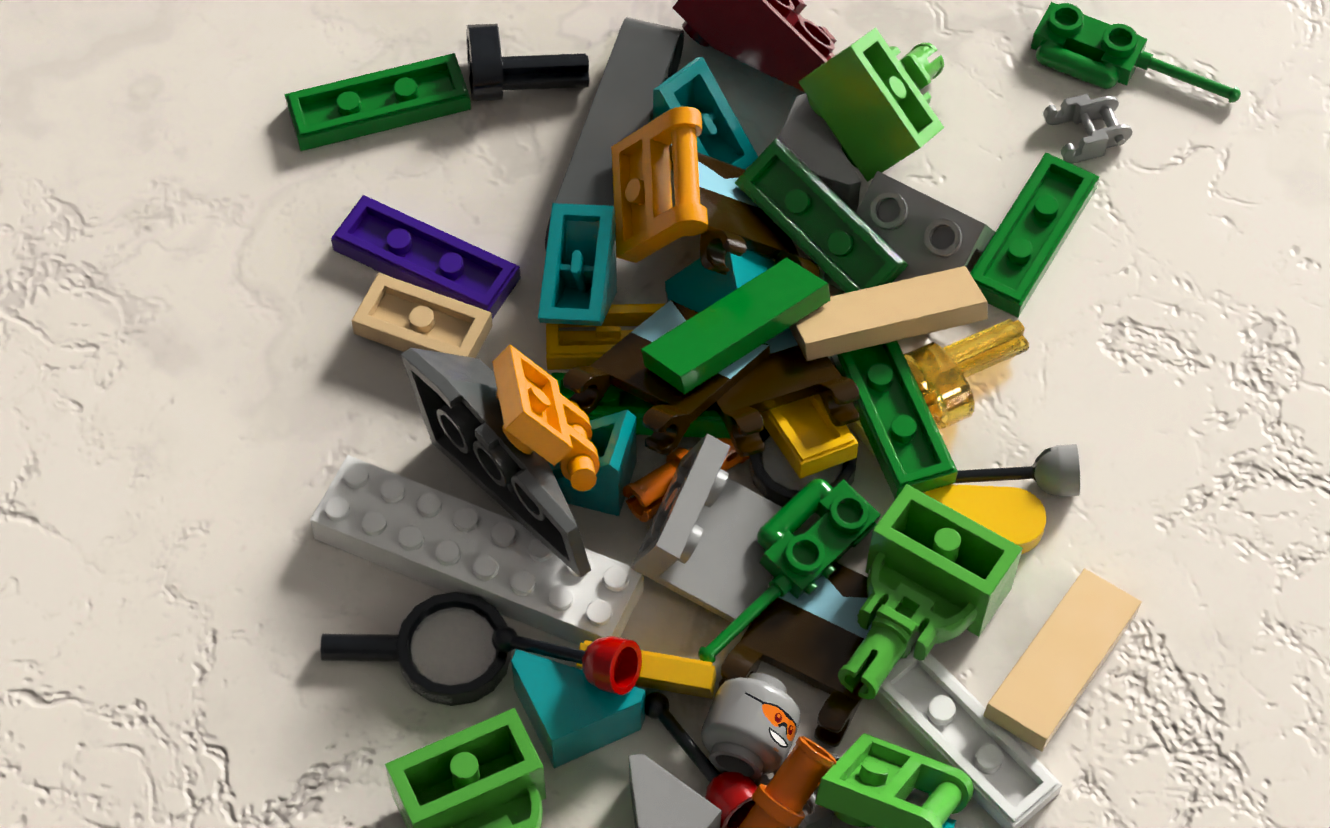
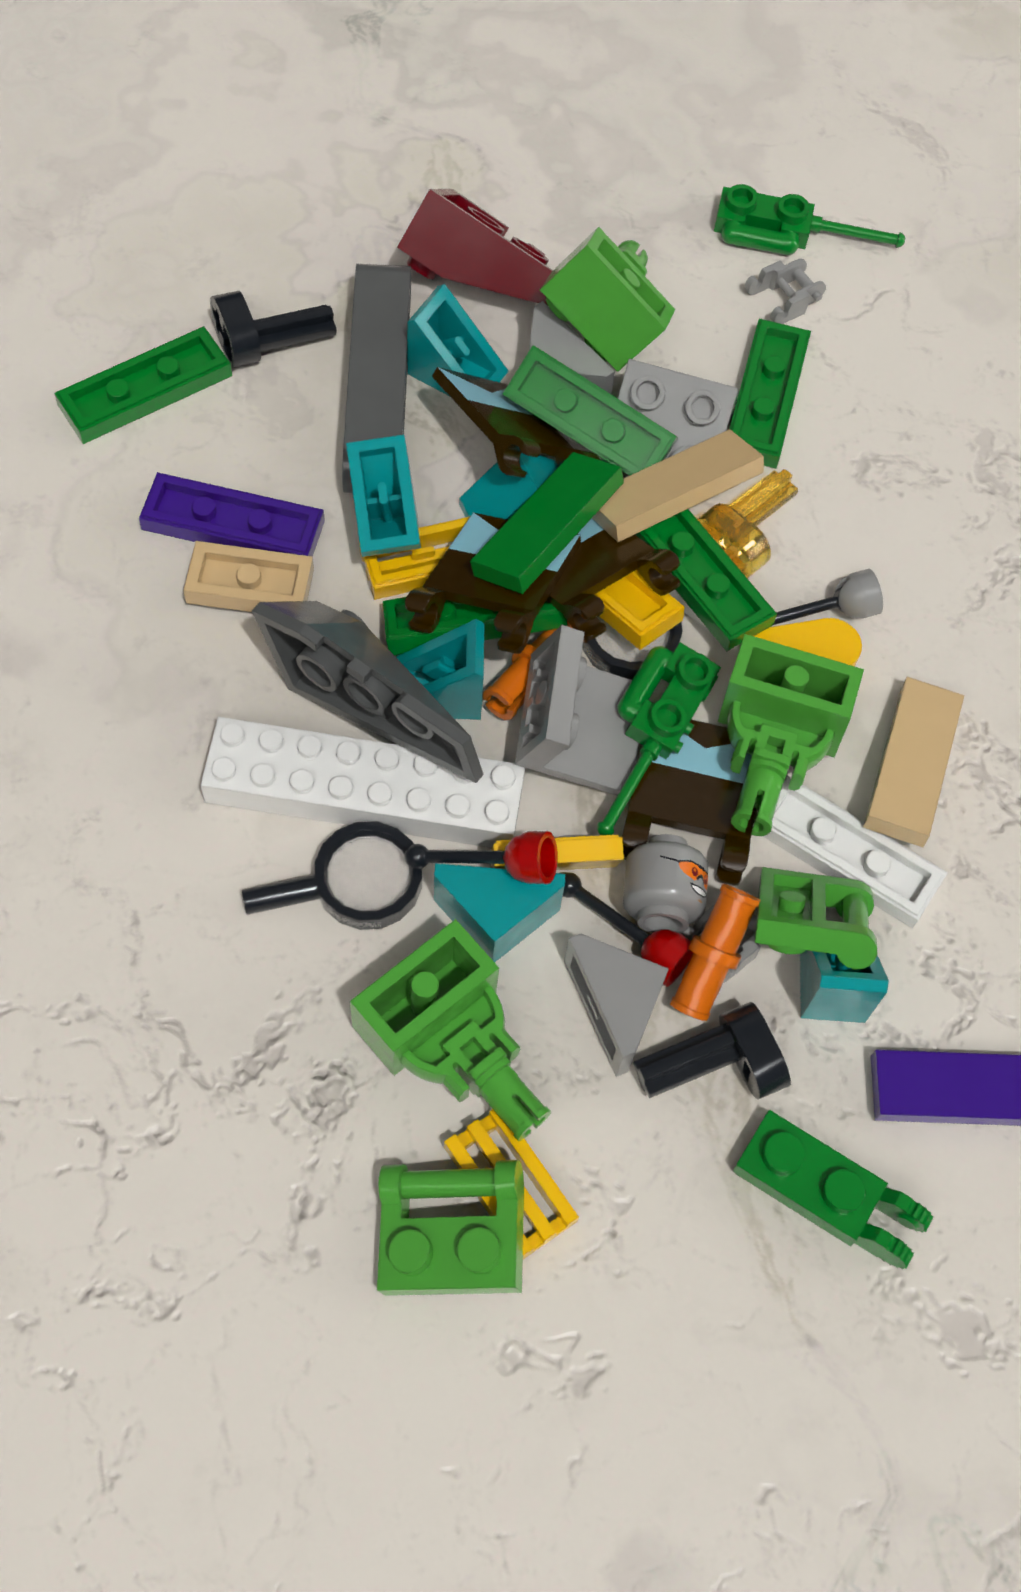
camera: 20 degrees left, 5 degrees up
(543, 419) = (405, 643): light orange plate -> none
(644, 188) = (426, 411): light orange plate -> none

